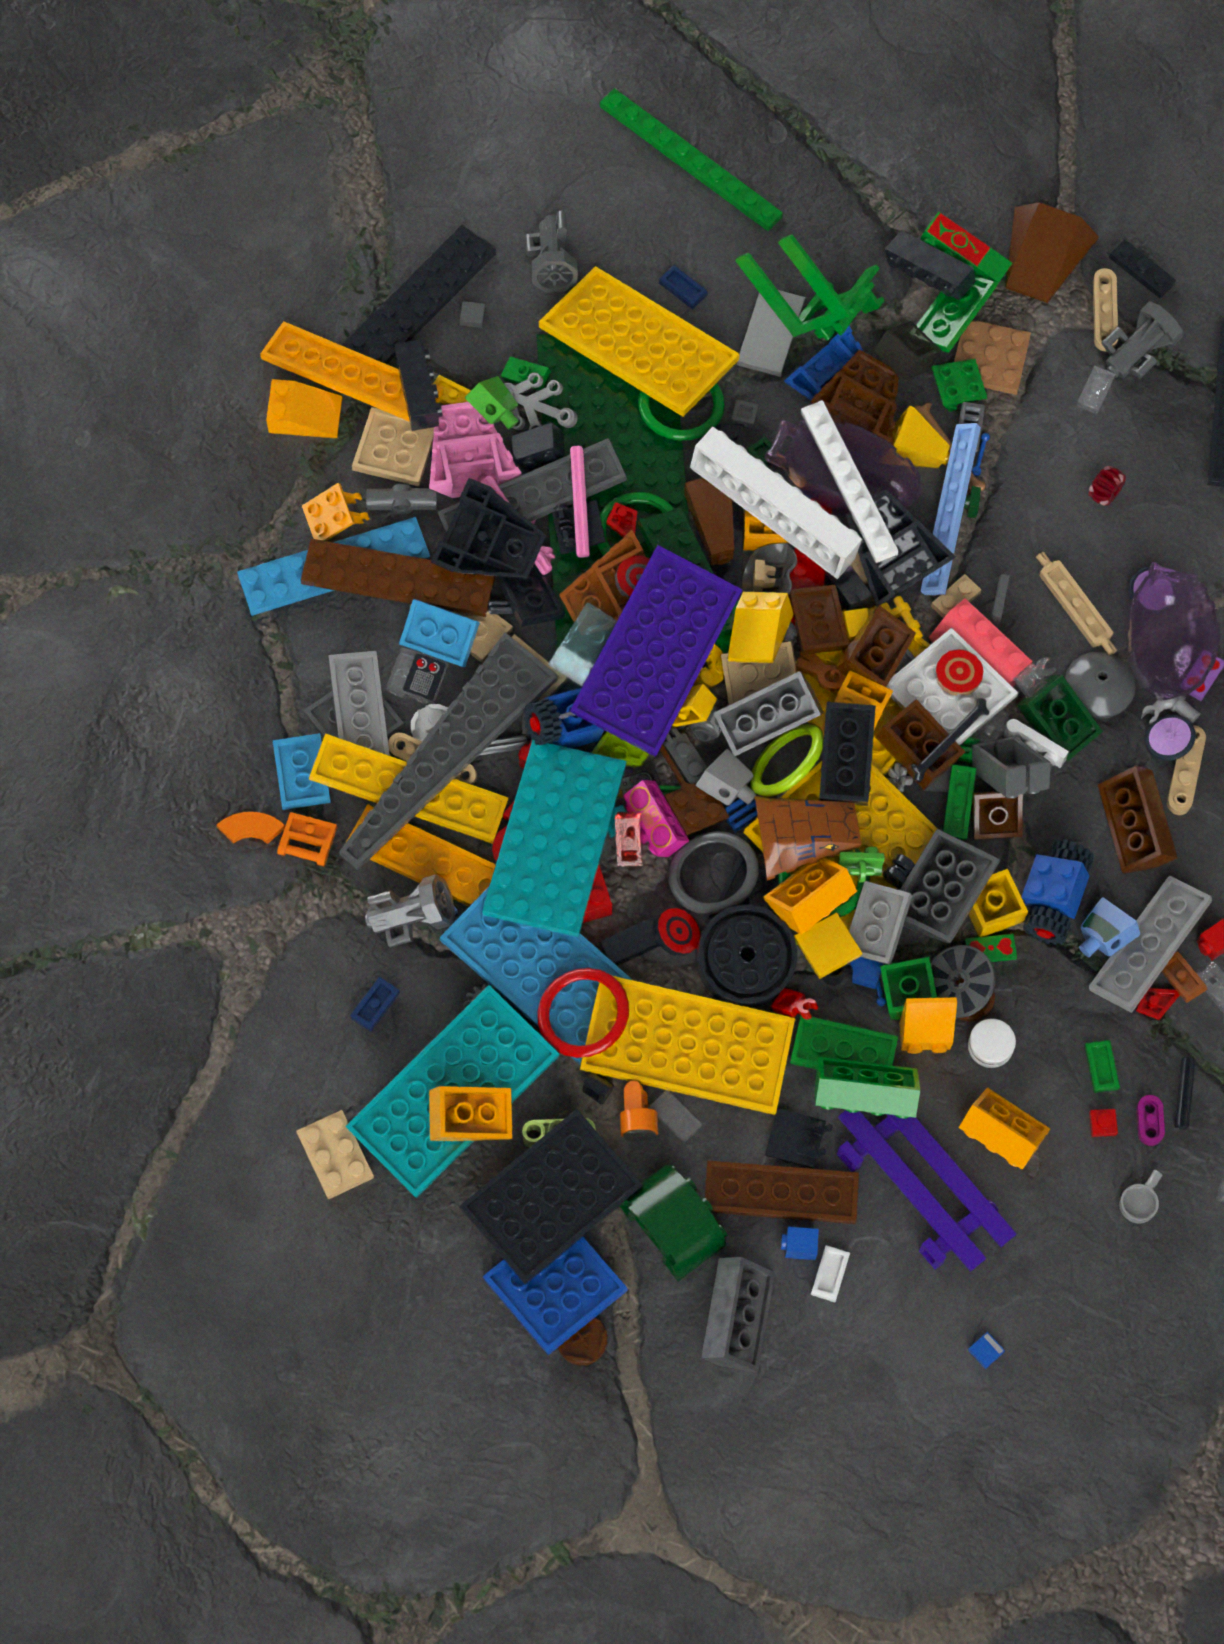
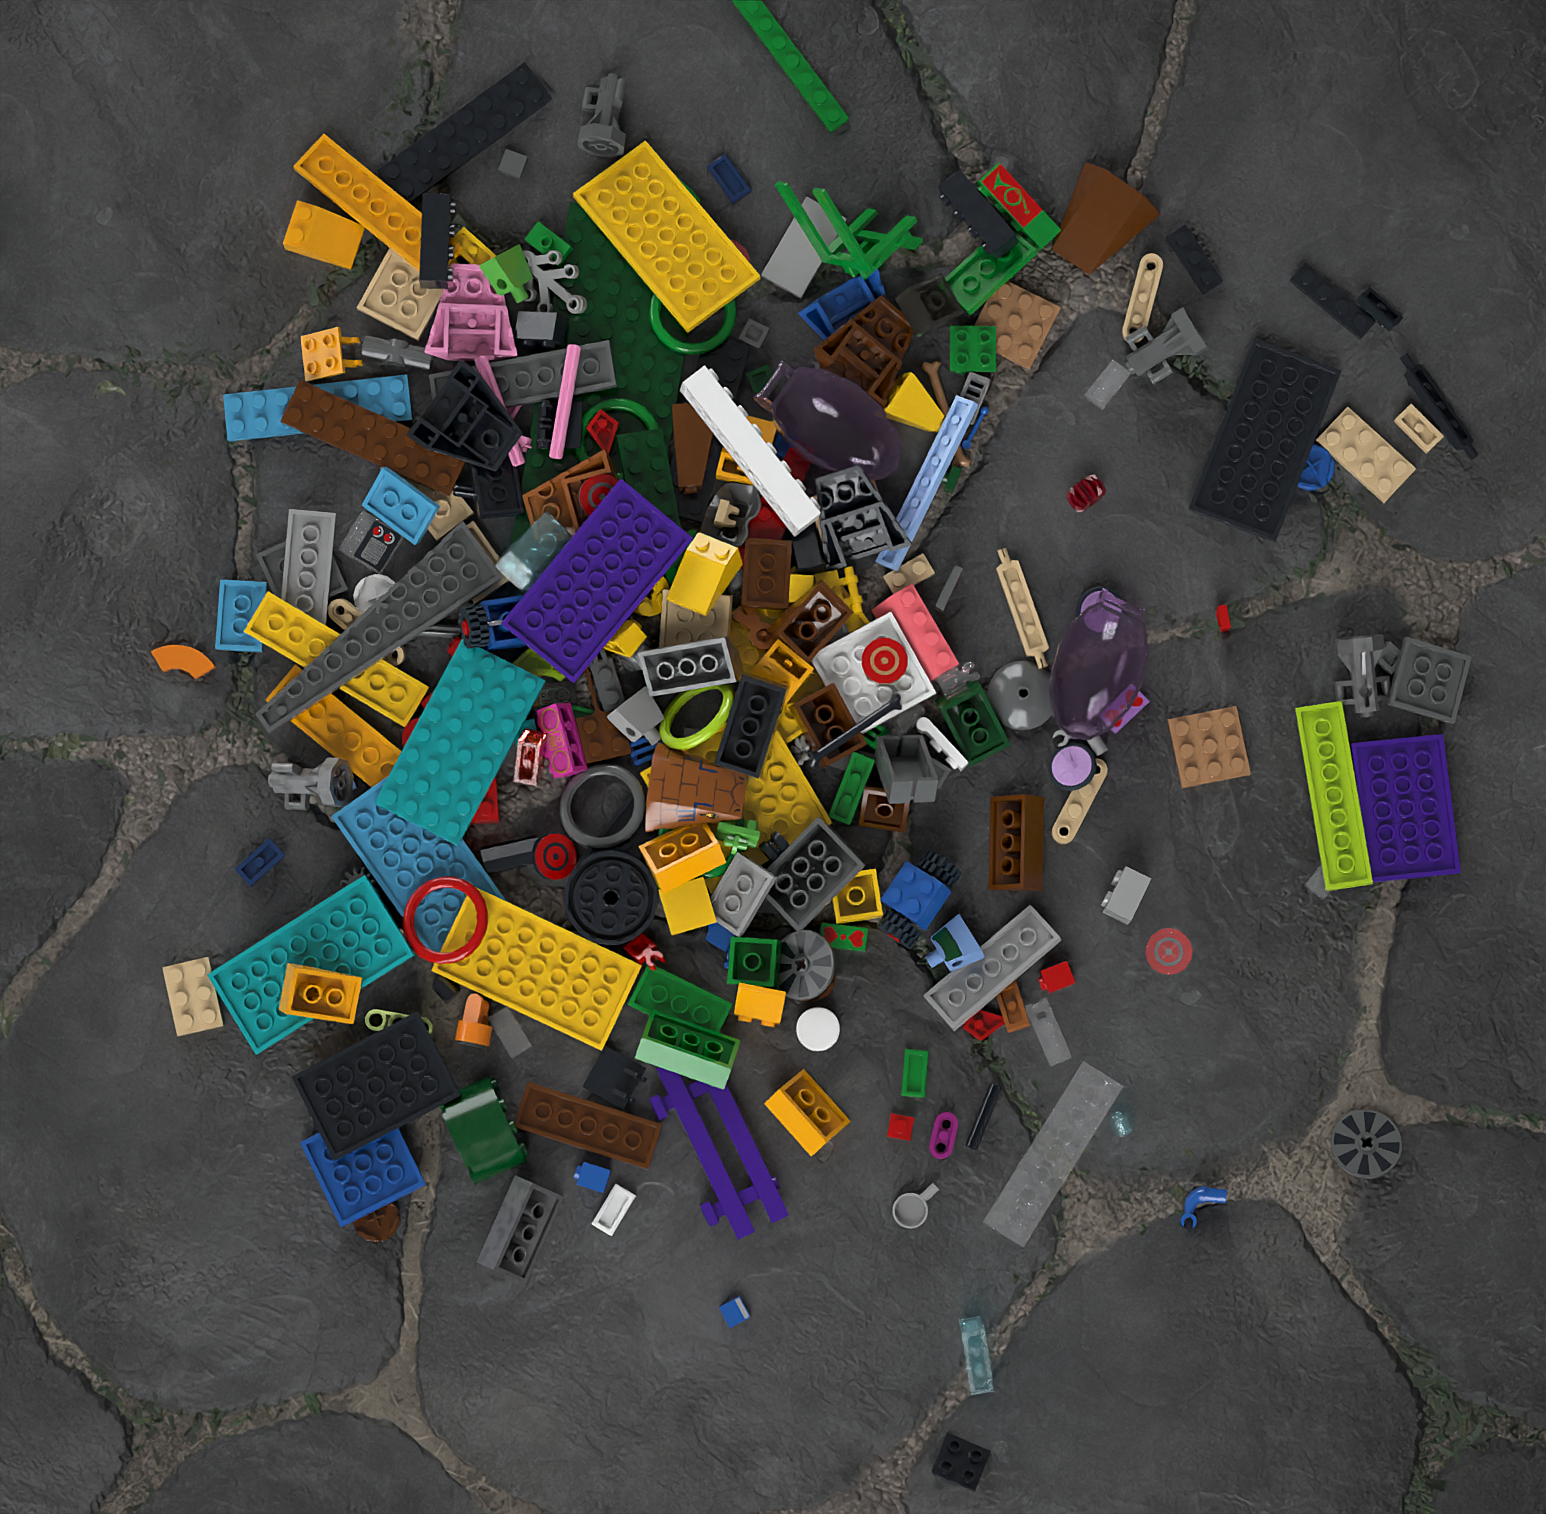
camera: 15 degrees right, 15 degrees up
(307, 831) = (235, 678): orange plate -> none
(849, 481) = (825, 447): white plate -> none

